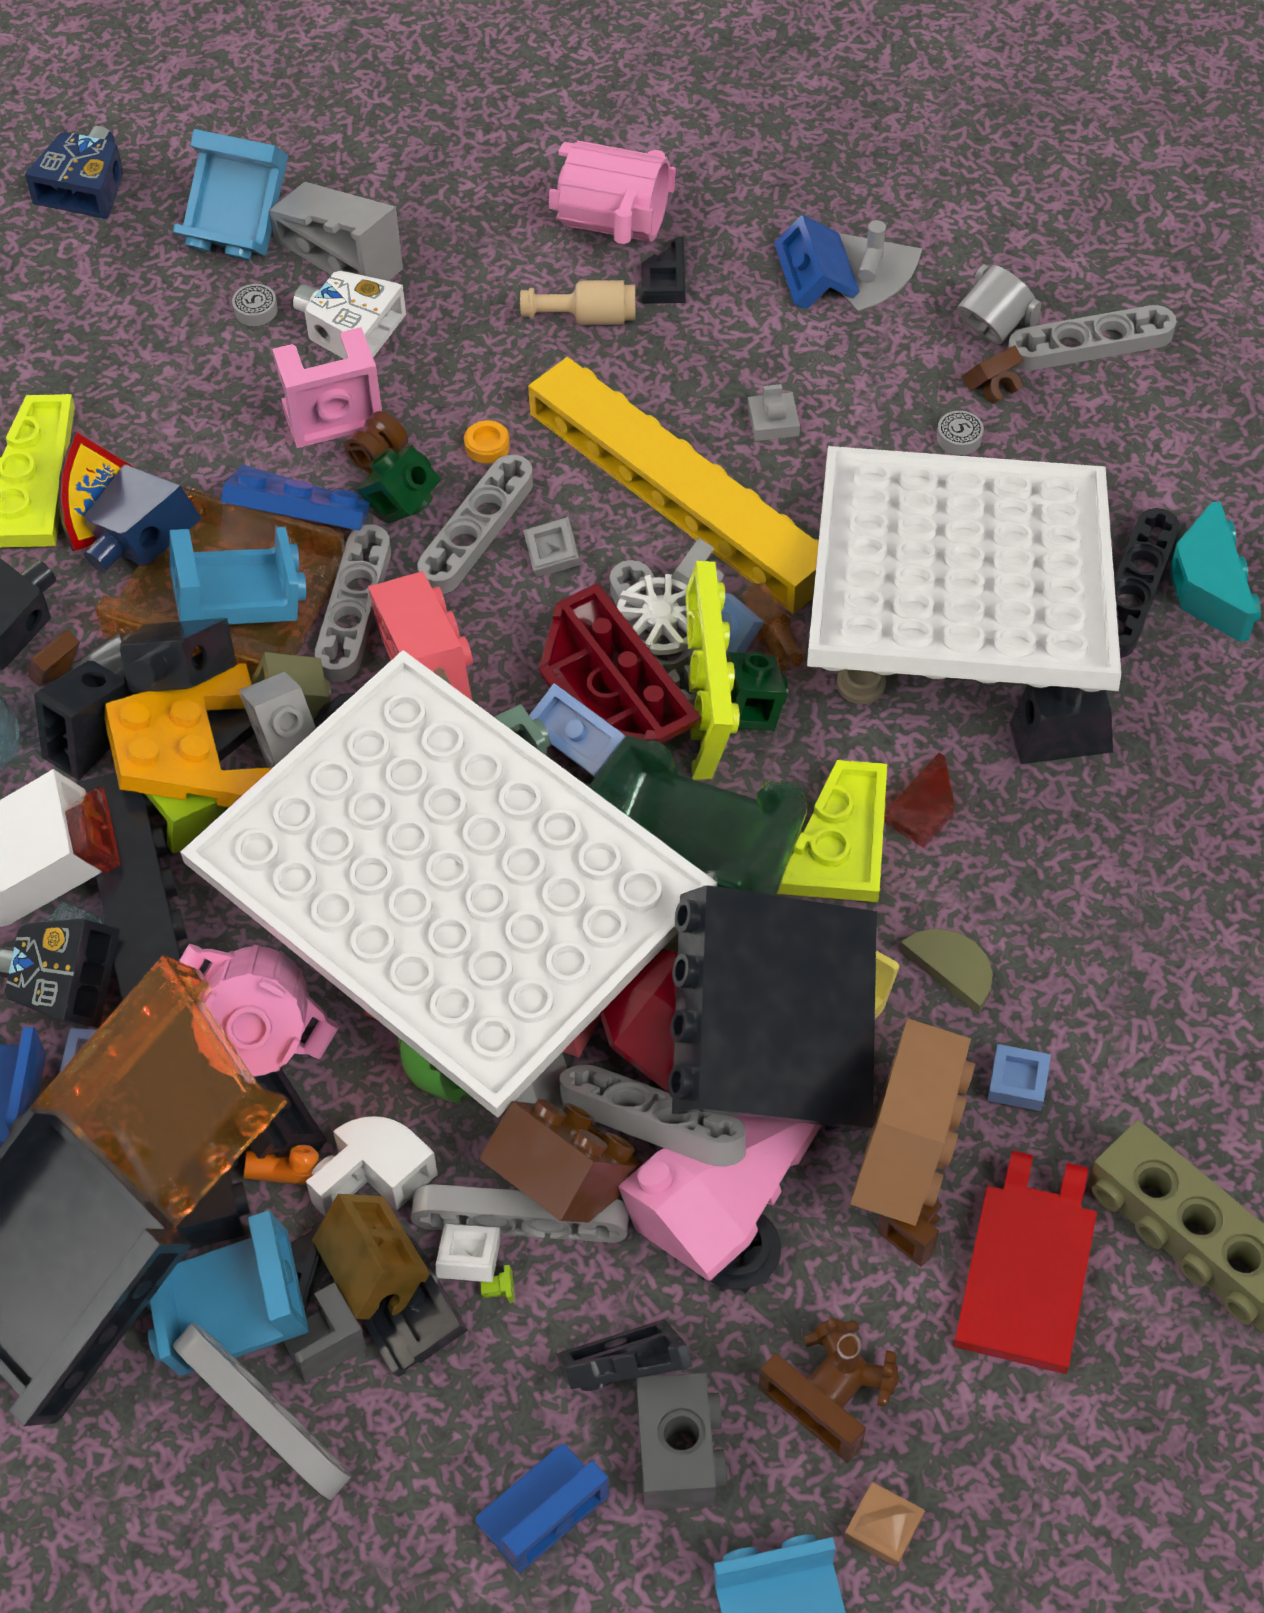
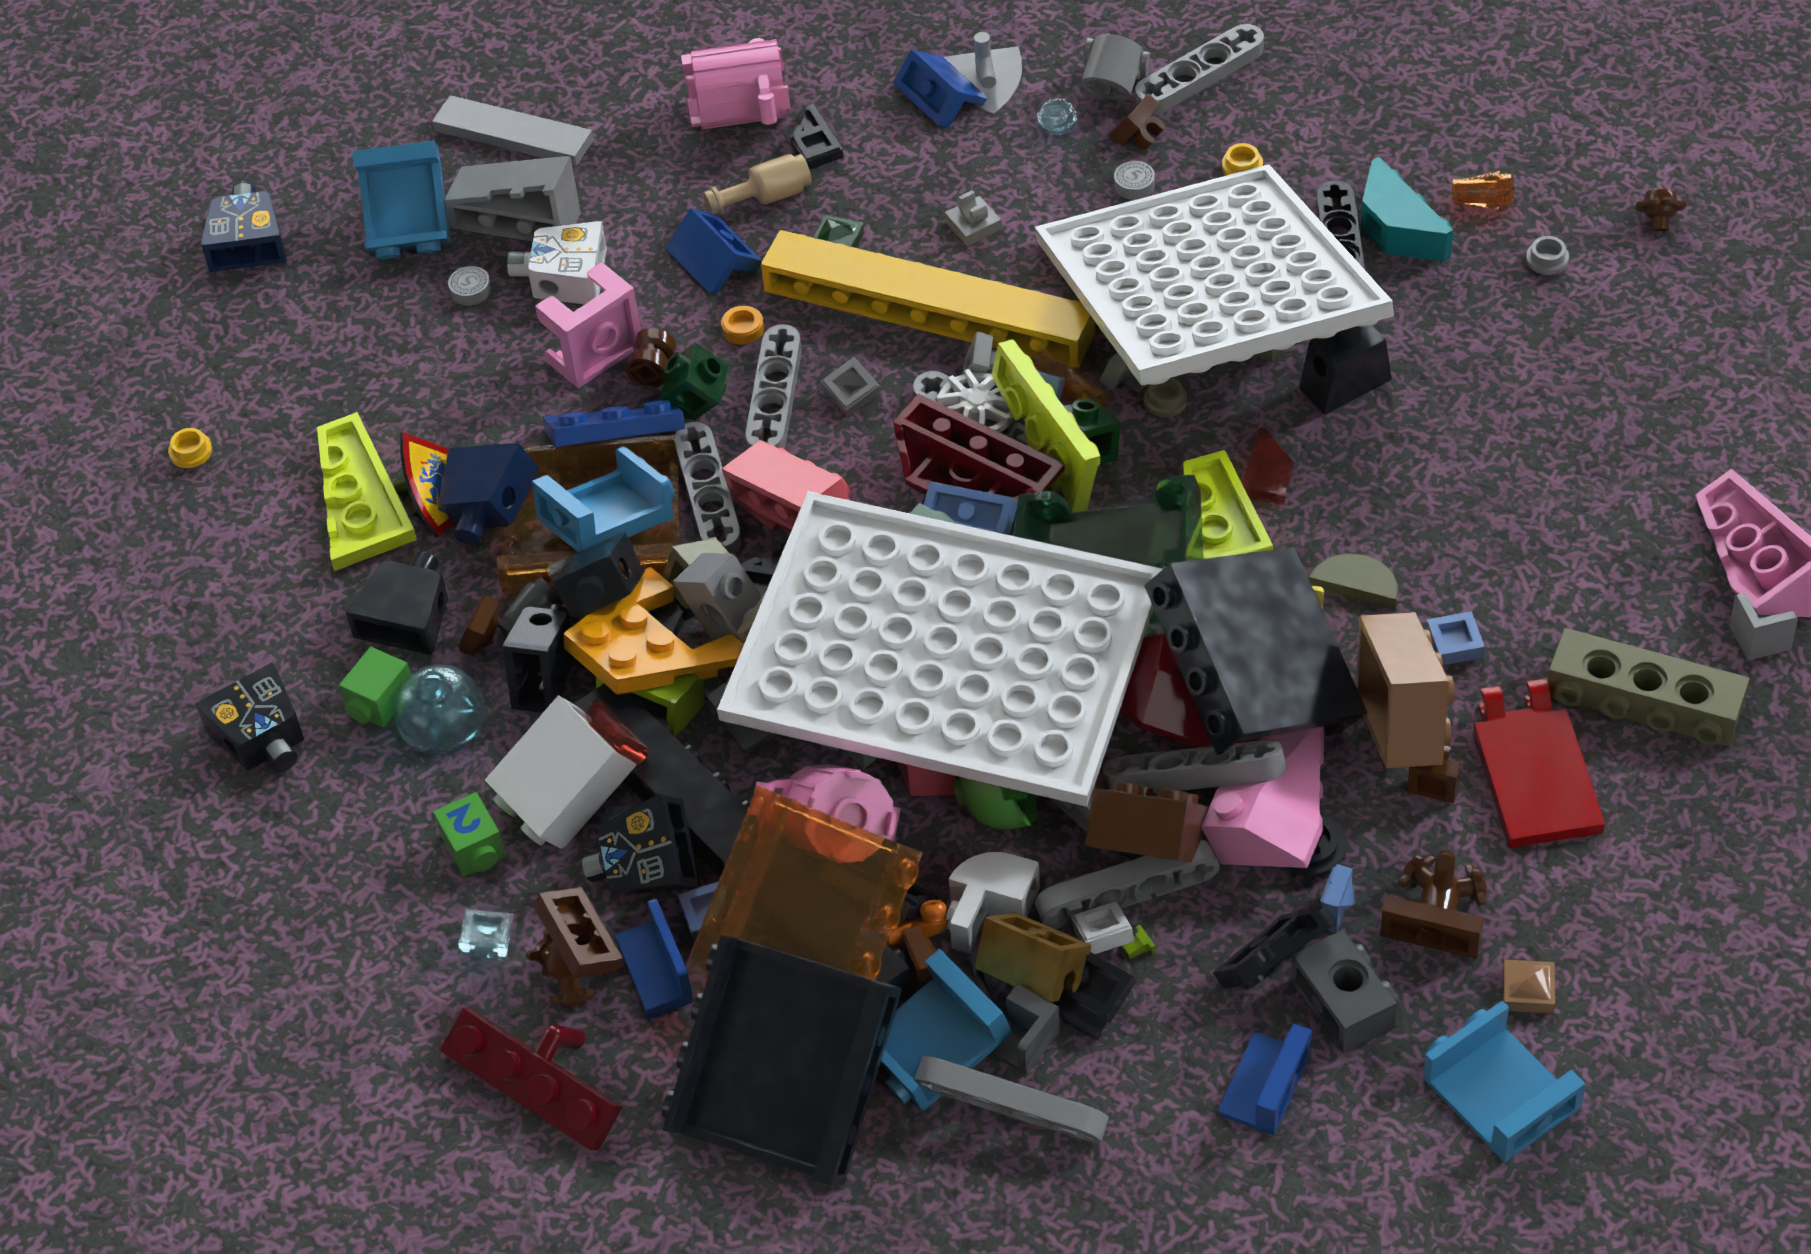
camera: 20 degrees left, 5 degrees down
(264, 1196) = (917, 950): none -> reddish brown tile
(386, 163) = (512, 129): none -> light grey tile
(498, 350) = (710, 250): none -> blue panel
(632, 381) = (840, 231): none -> dark green tile
(727, 1327) = (1338, 894): none -> medium blue tile
(917, 337) = (1057, 117): none -> clear light blue plate
(1081, 450) = (1241, 158): none -> yellow plate

